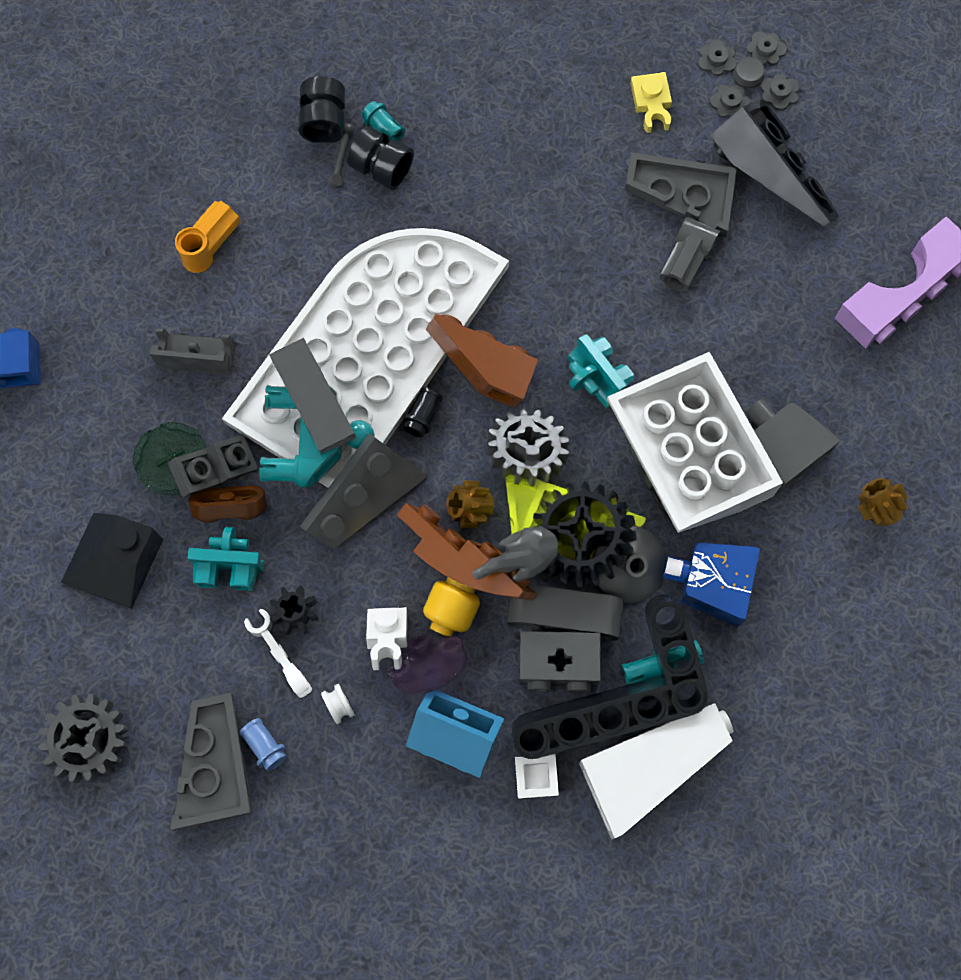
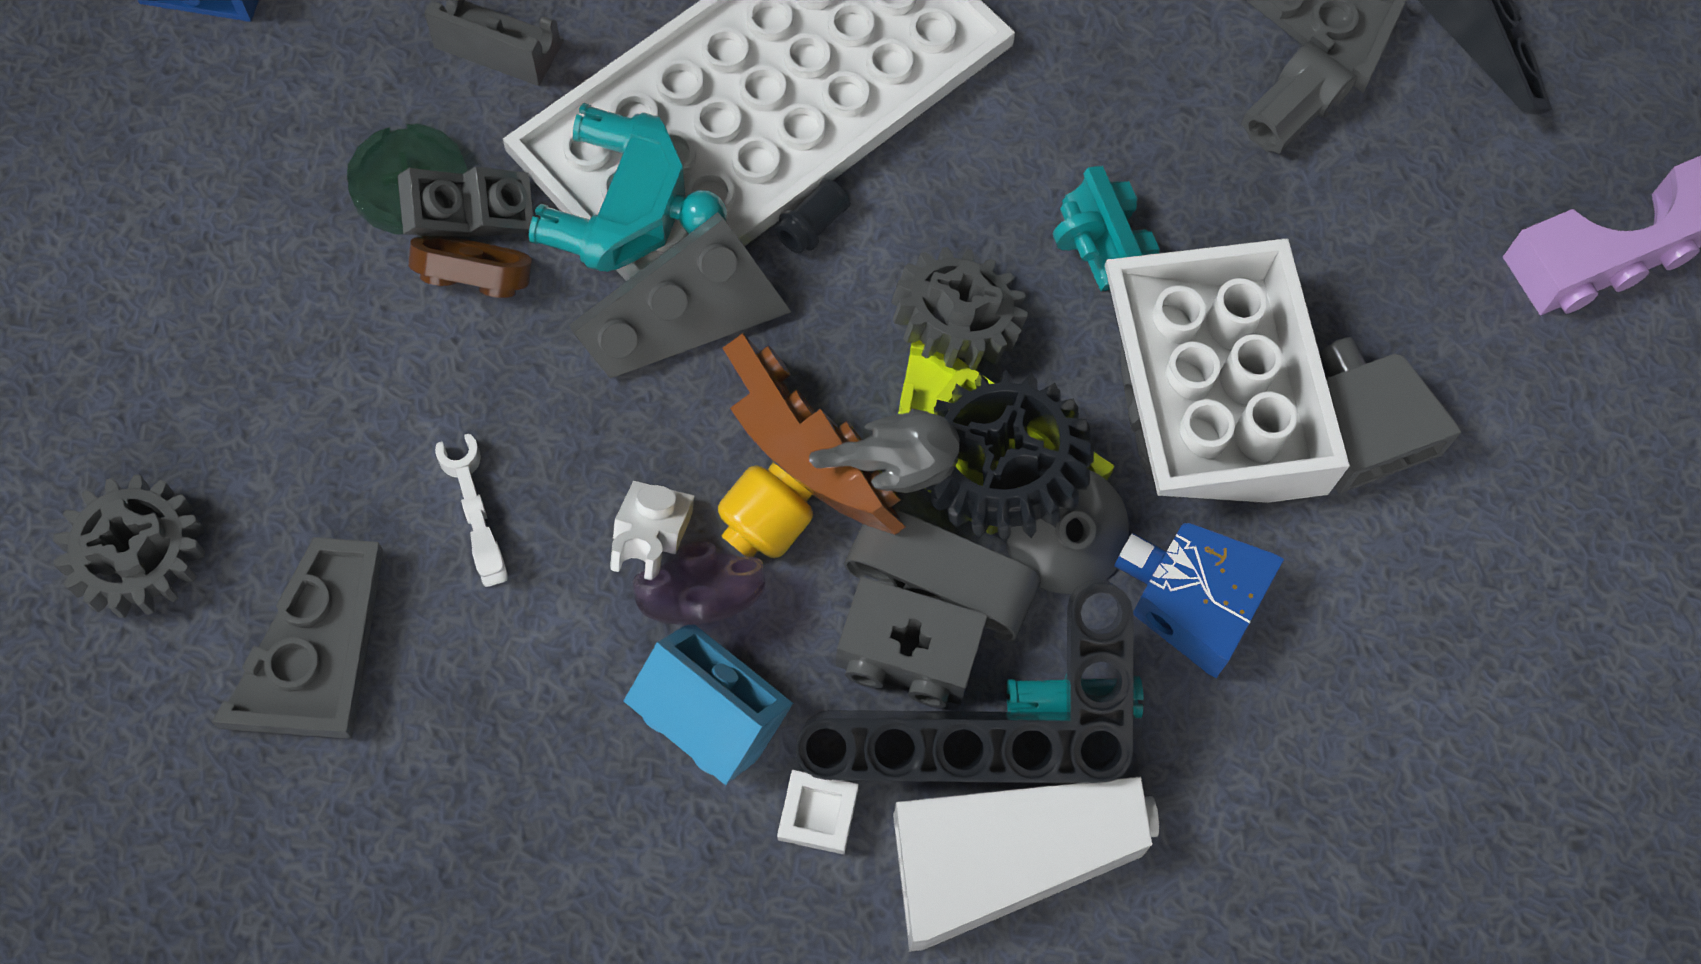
camera: 10 degrees right, 5 degrees down
(113, 558) = (271, 297): black slope -> none
(209, 561) = (442, 338): teal hips -> none
(263, 745) = (402, 637): medium blue pin -> none
(297, 620) = (517, 464): black gear -> none
(312, 396) = (647, 132): dark grey tile -> none
(337, 704) = (538, 609): white bush -> none
(470, 504) = (842, 368): pearl gold gear -> none
(489, 365) = (936, 170): dark orange slope -> none
(882, 502) = (1504, 548): pearl gold gear -> none

